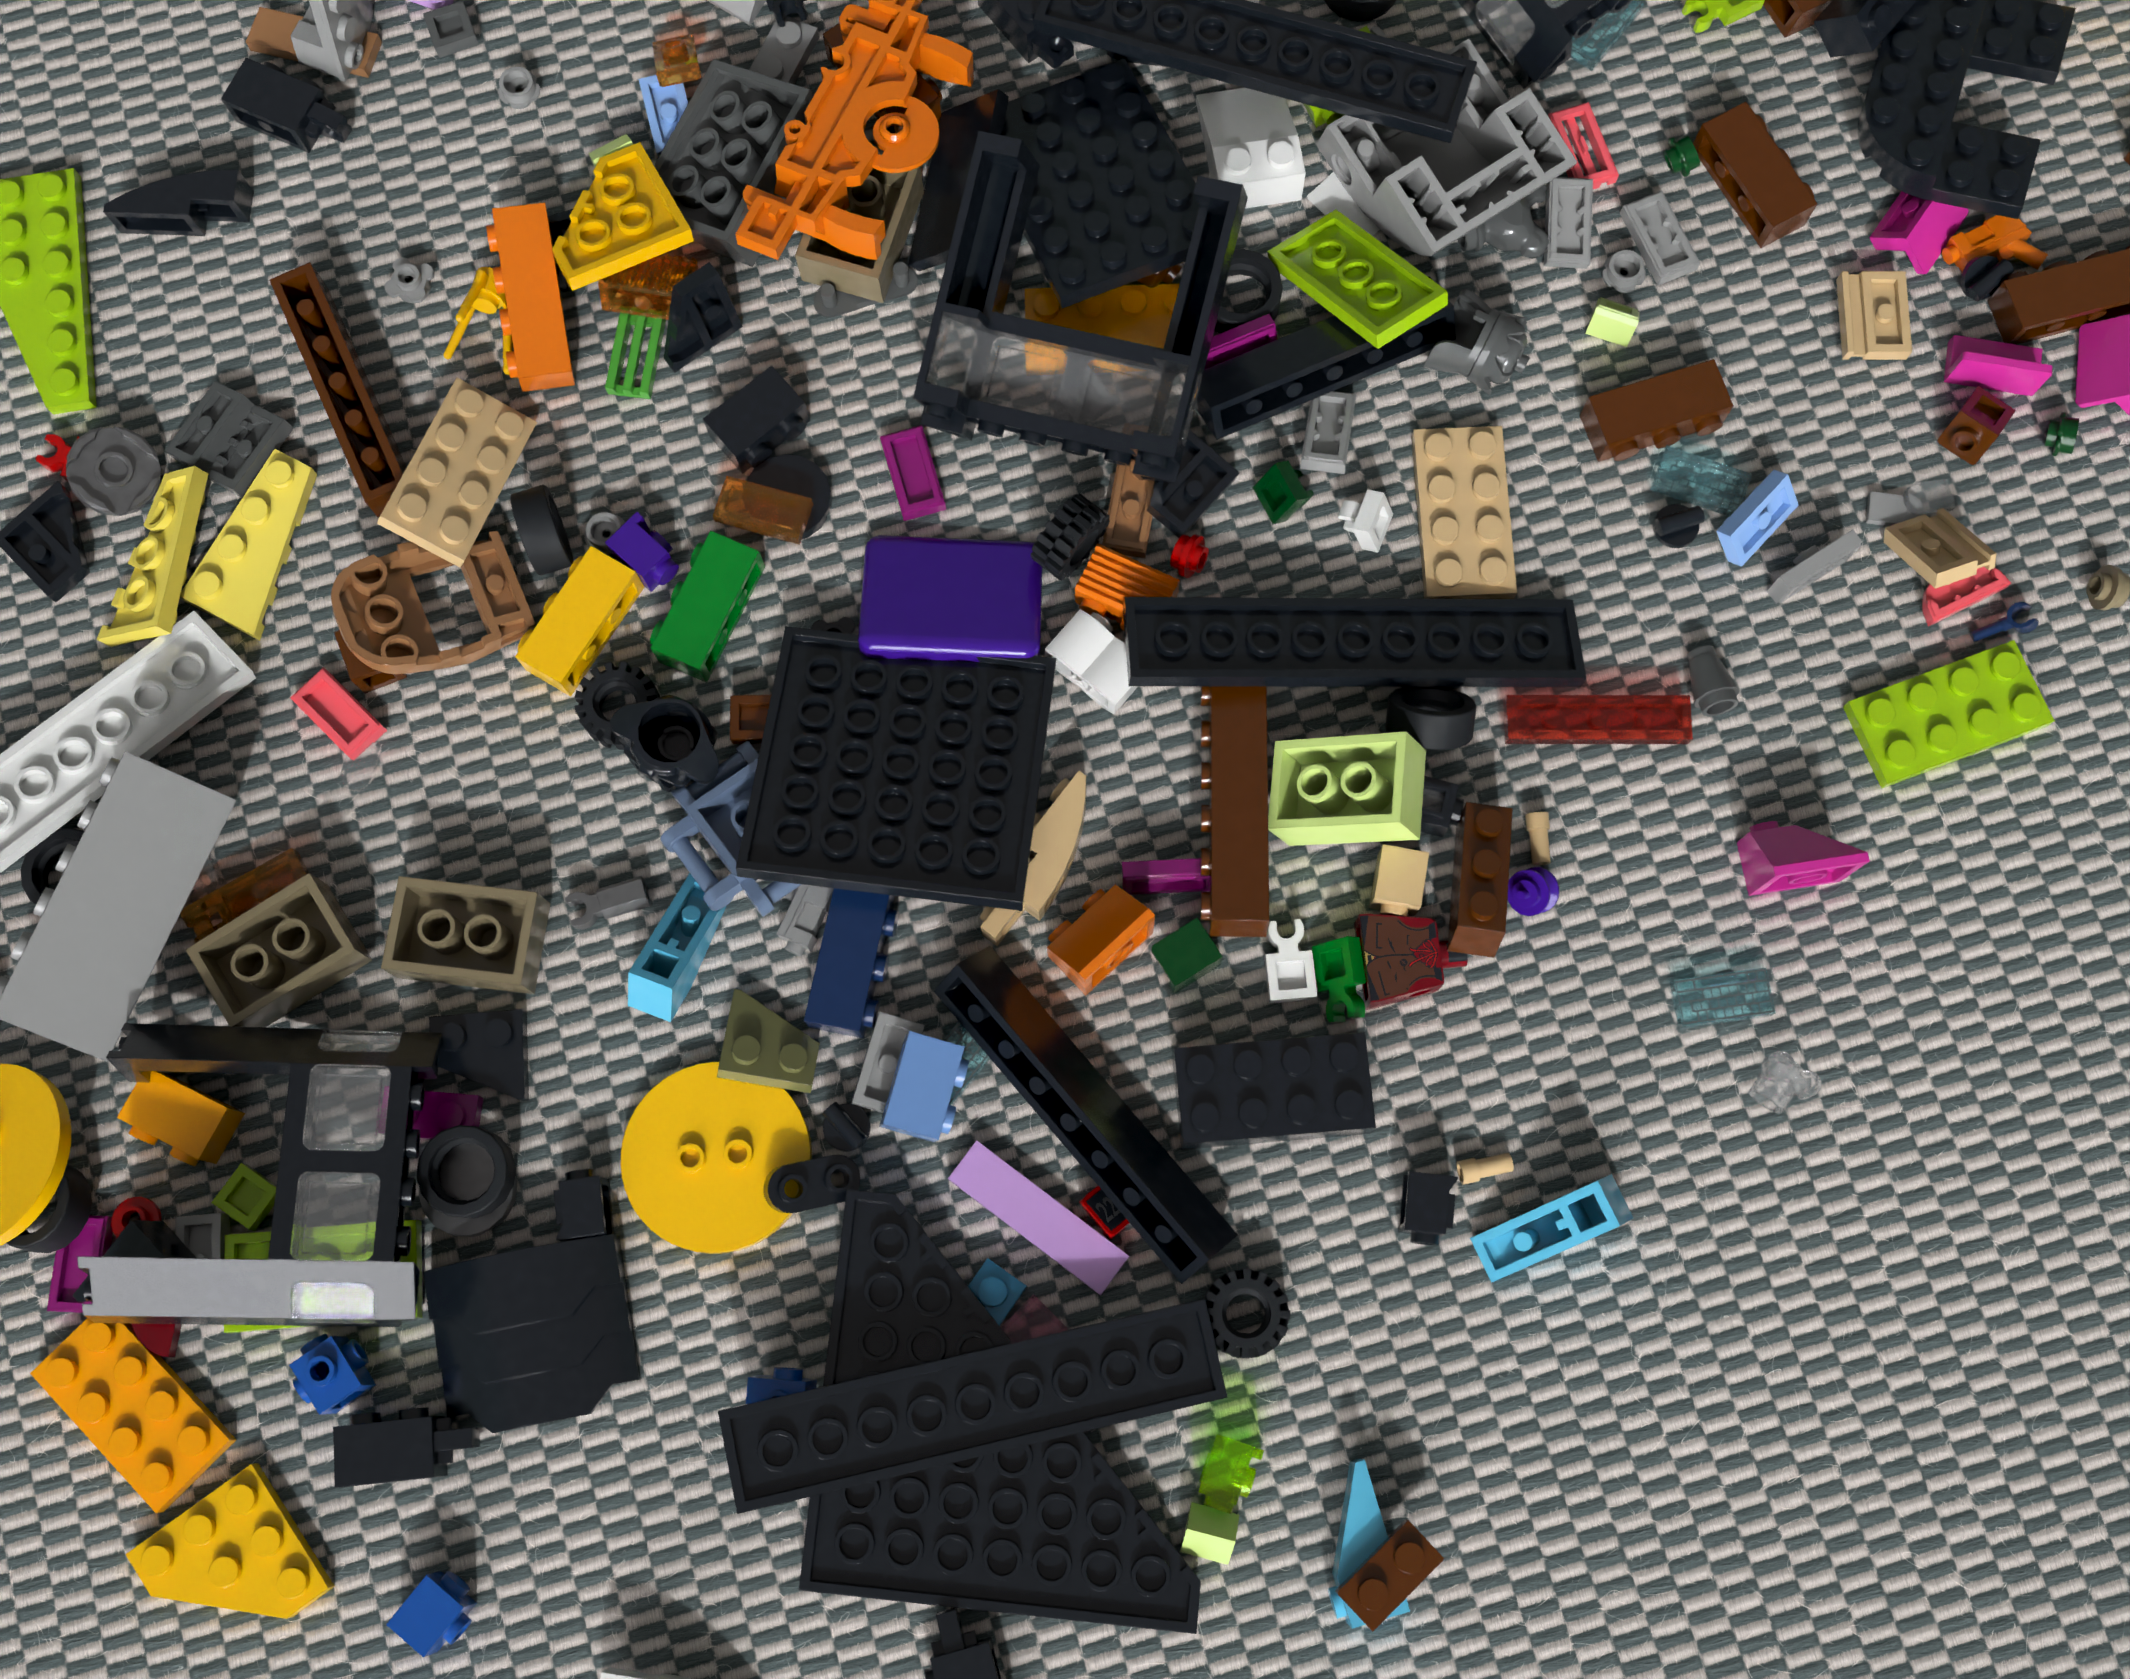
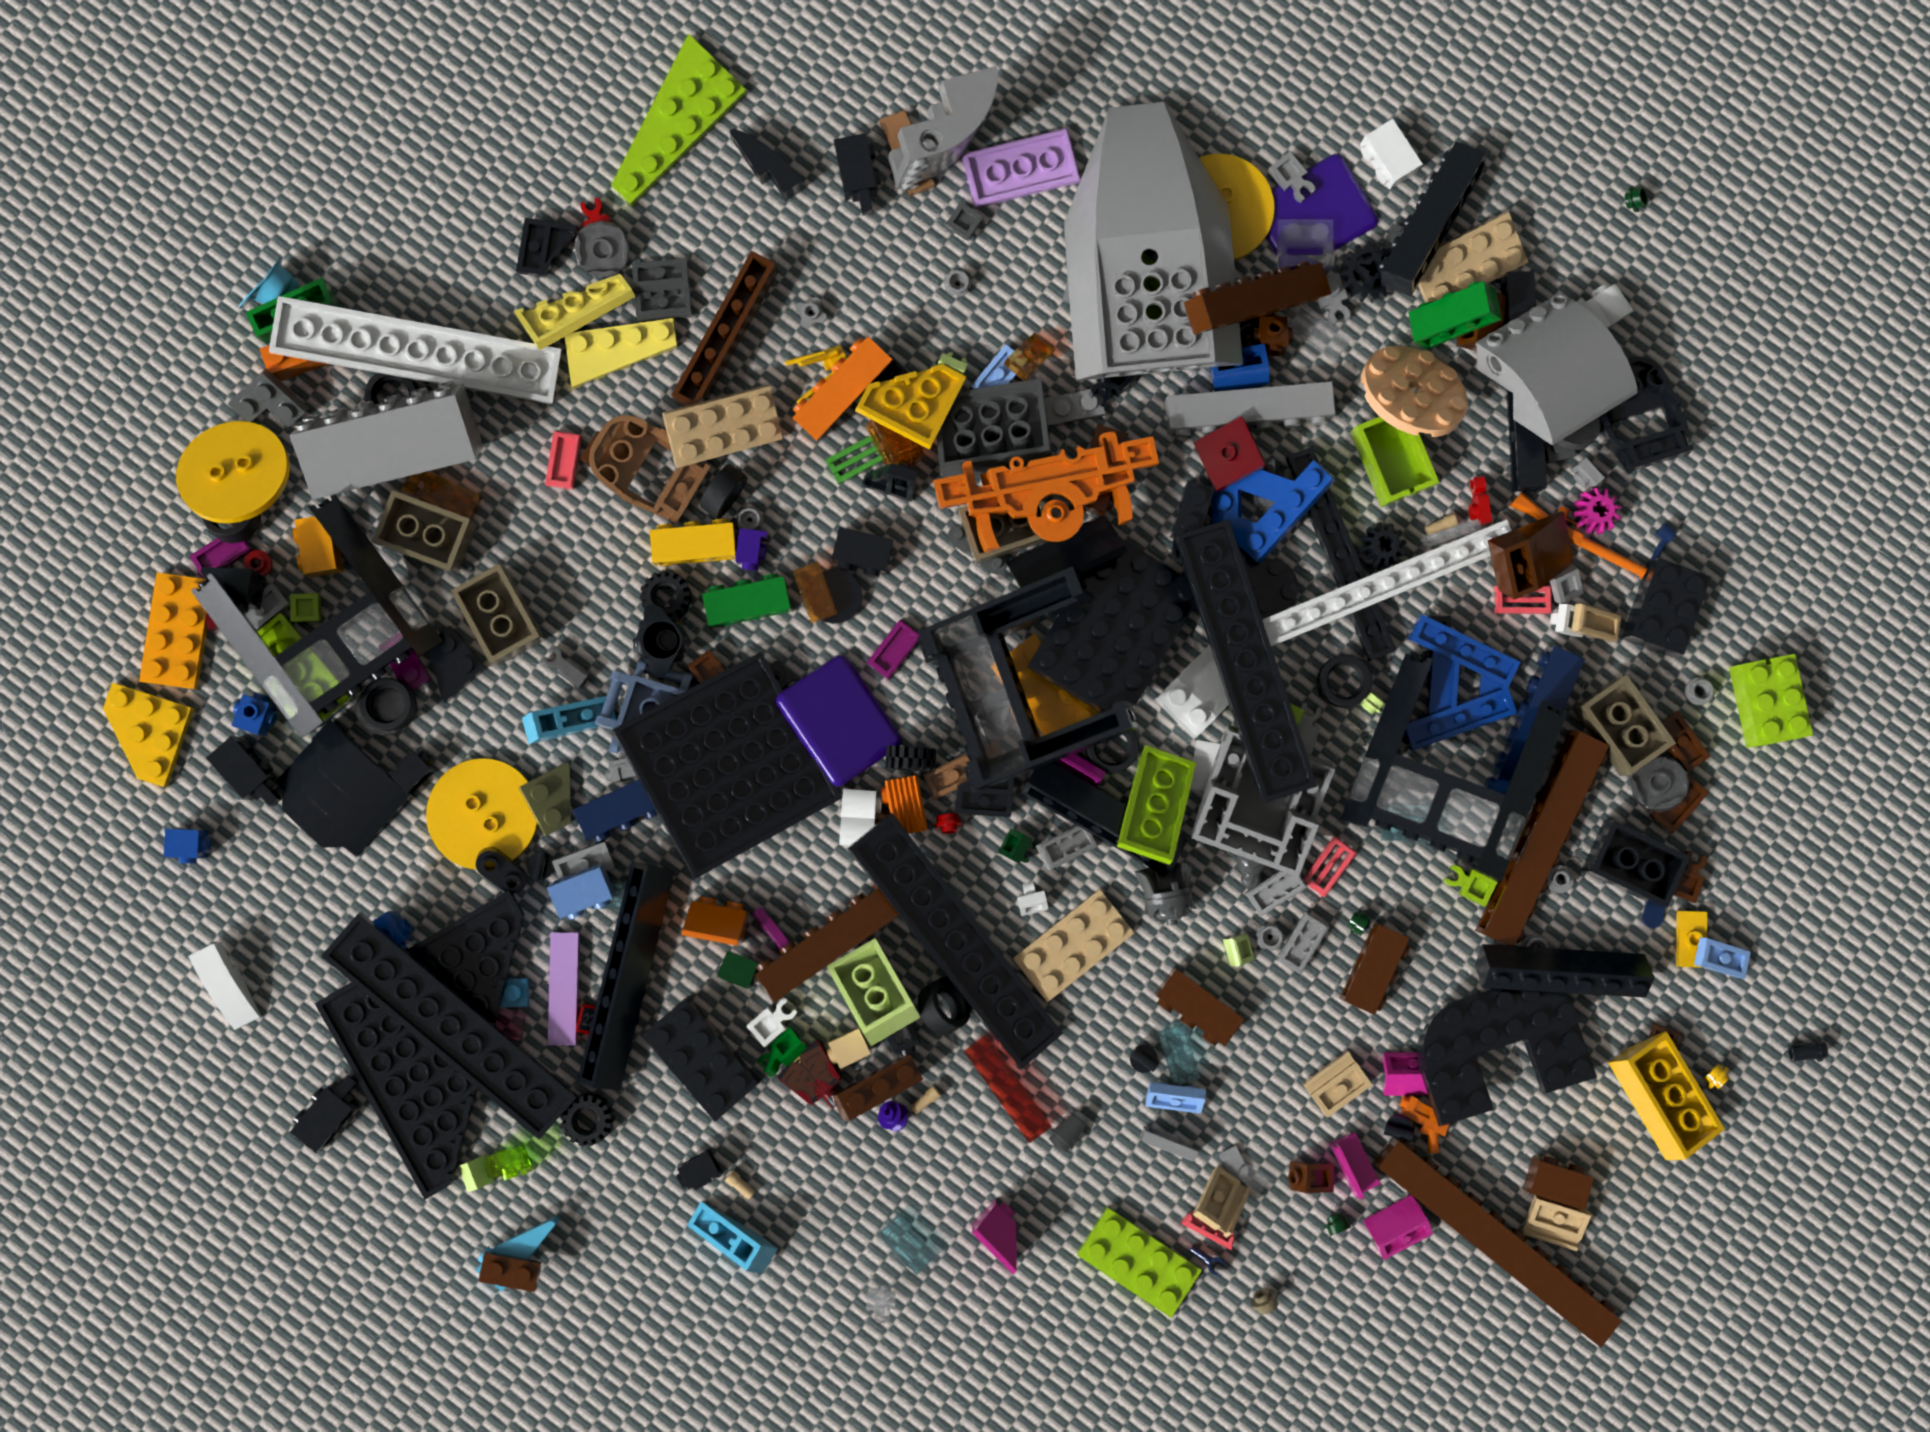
camera: 45 degrees right, 10 degrees up
(1052, 855) = (746, 865): tan slope -> none

